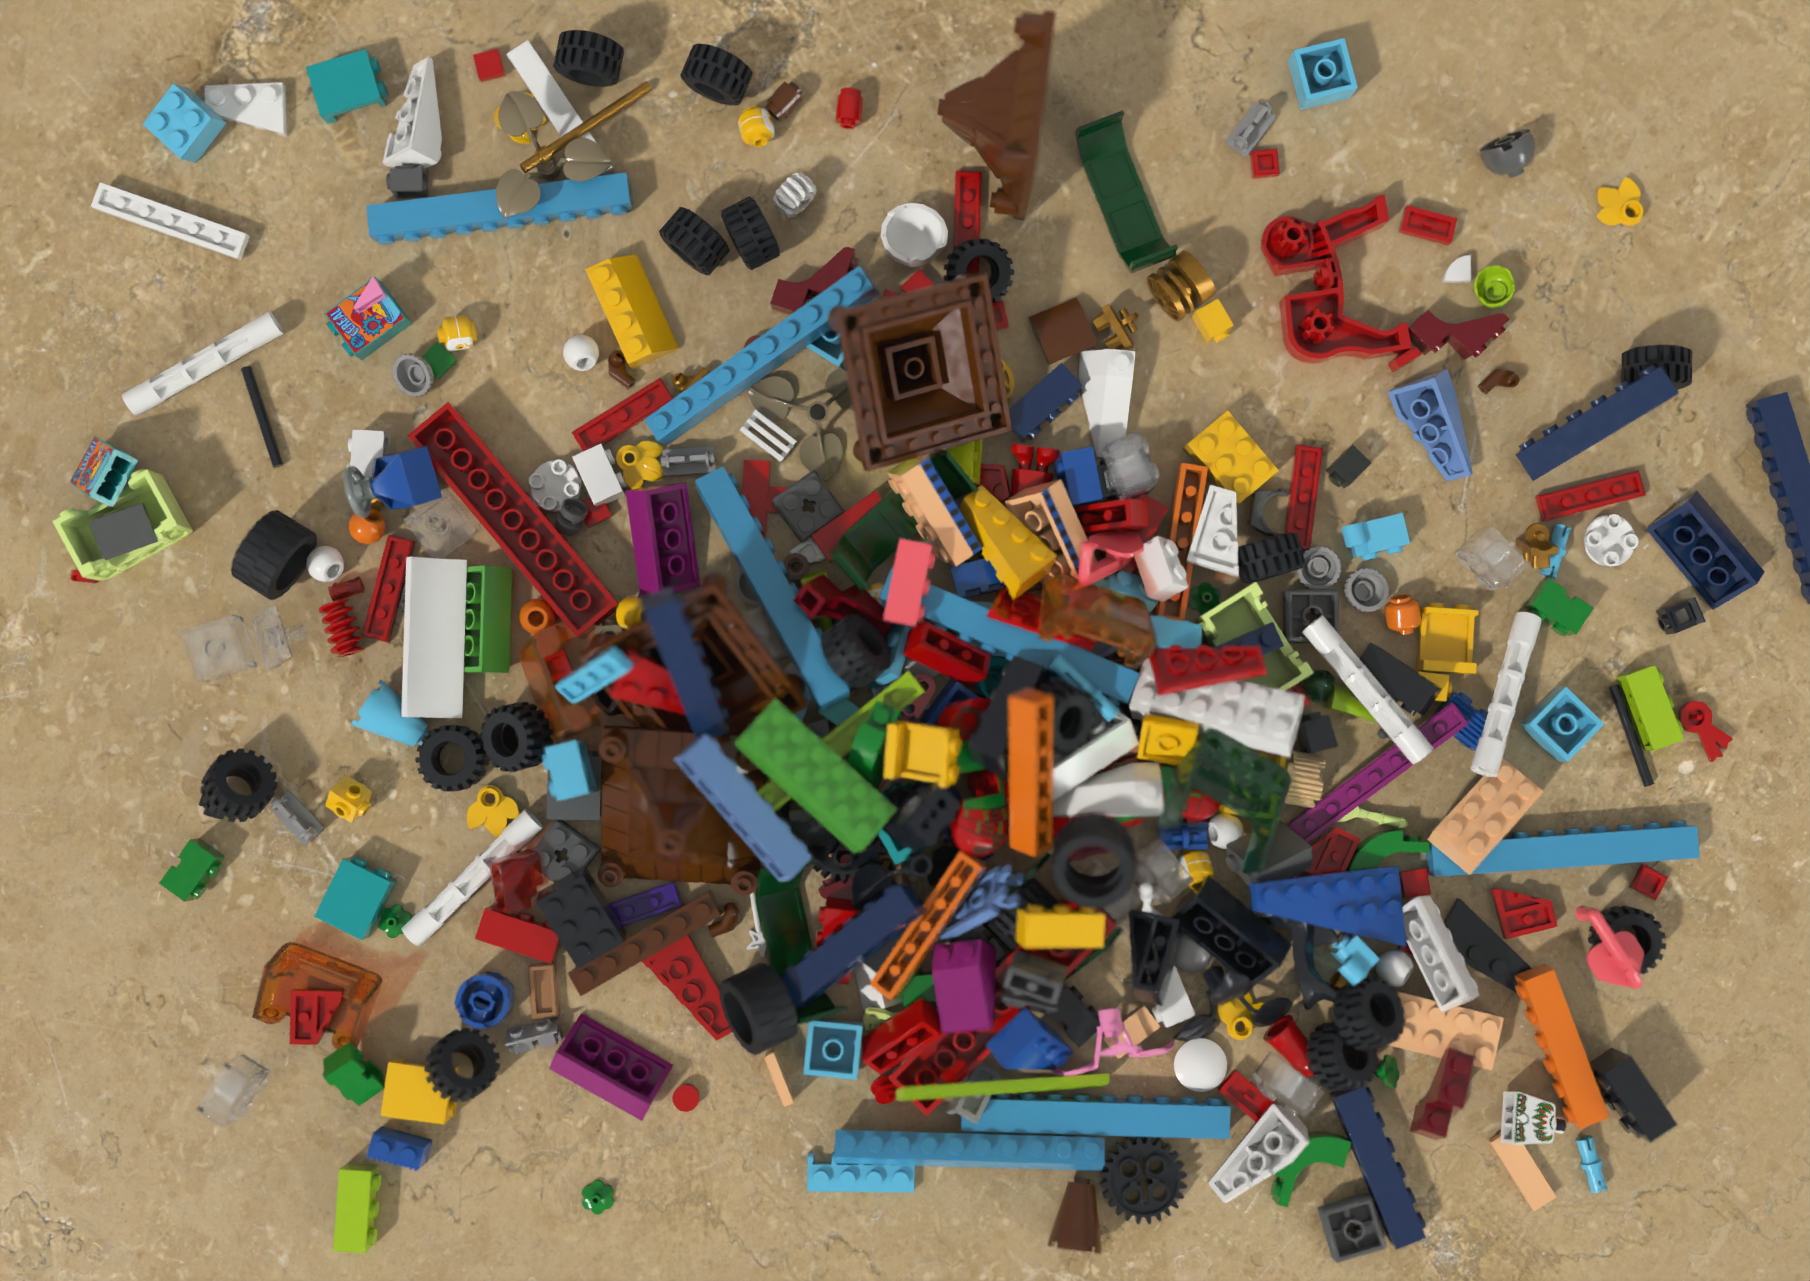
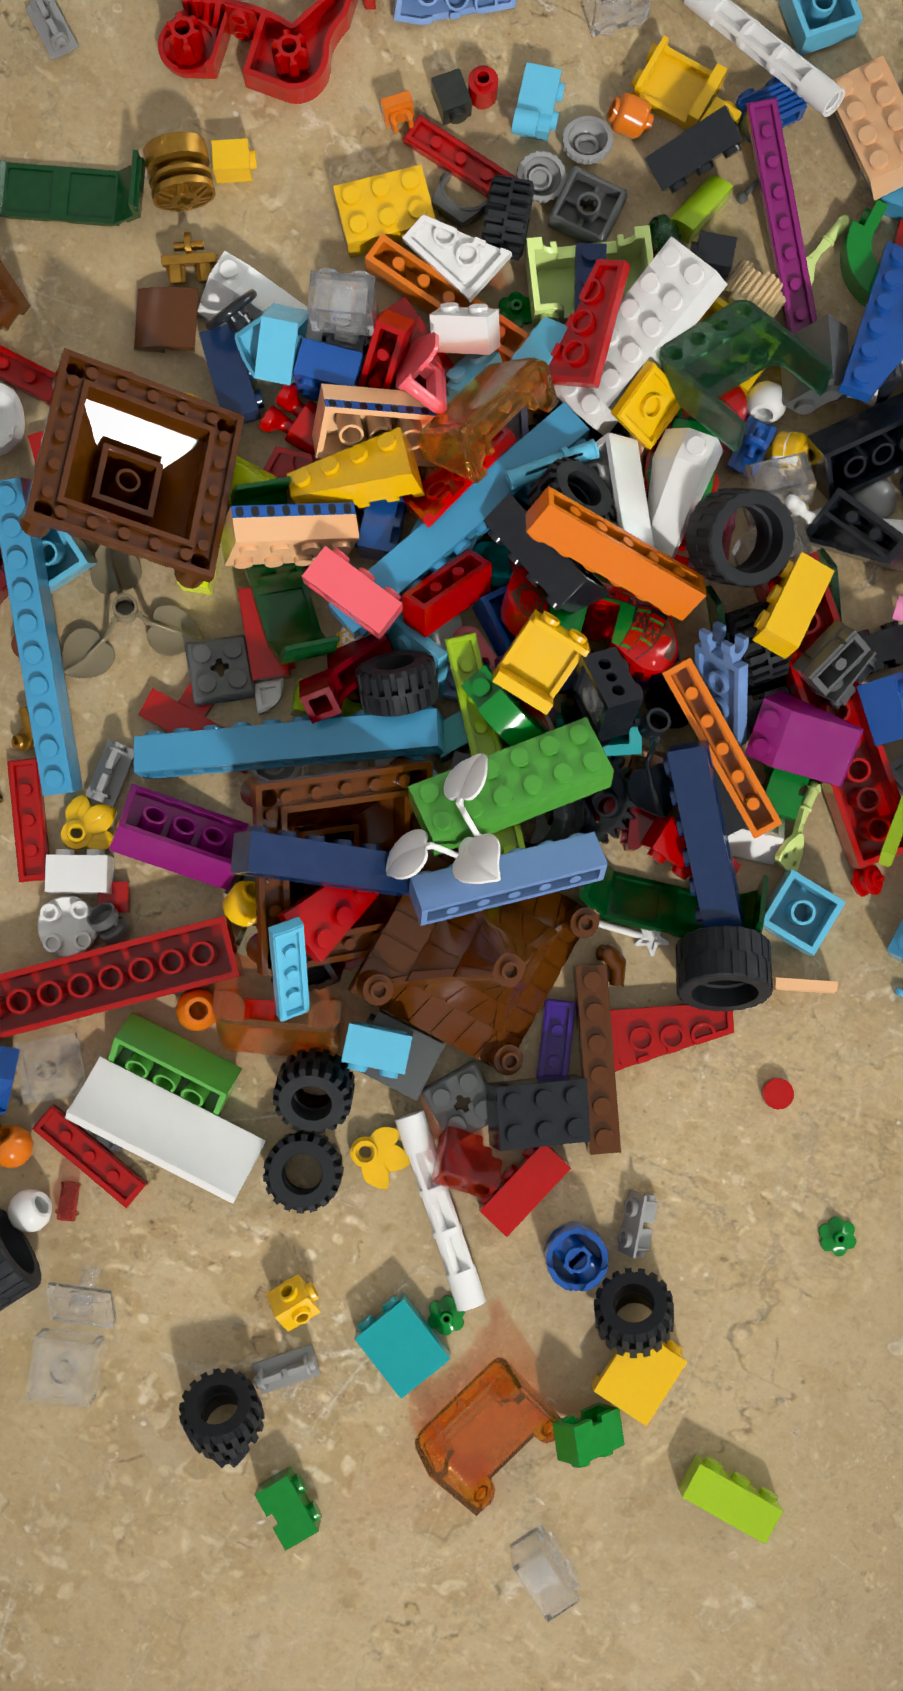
camera: 65 degrees left, 0 degrees up
(311, 1014) = (503, 1449): red wing -> none
(341, 628) = (107, 1226): red piece -> none
(383, 717) = (224, 1223): medium azure cone -> none
(399, 1148) = (689, 1422): blue brick -> none
(543, 990) = (595, 1191): medium nougat tile -> none
(610, 1066) = (709, 1156): magenta slope -> none
(744, 777) = (477, 855): none -> white plant
(751, 423) = (102, 688): white tile -> none
(791, 560) = (276, 702): reddish brown cone -> none
(901, 1036) = (822, 834): red brick -> none
(992, 253) = (43, 352): black tyre -> none
(1078, 419) = (268, 341): none -> medium azure piece
(1264, 163) = (94, 31): red tile -> none
(1317, 429) = (397, 109): none -> orange tile
(1332, 852) = (841, 301): red wing -> none
(1360, 491) = (483, 86): none -> red brick
(1368, 690) = (693, 181): white piece -> none

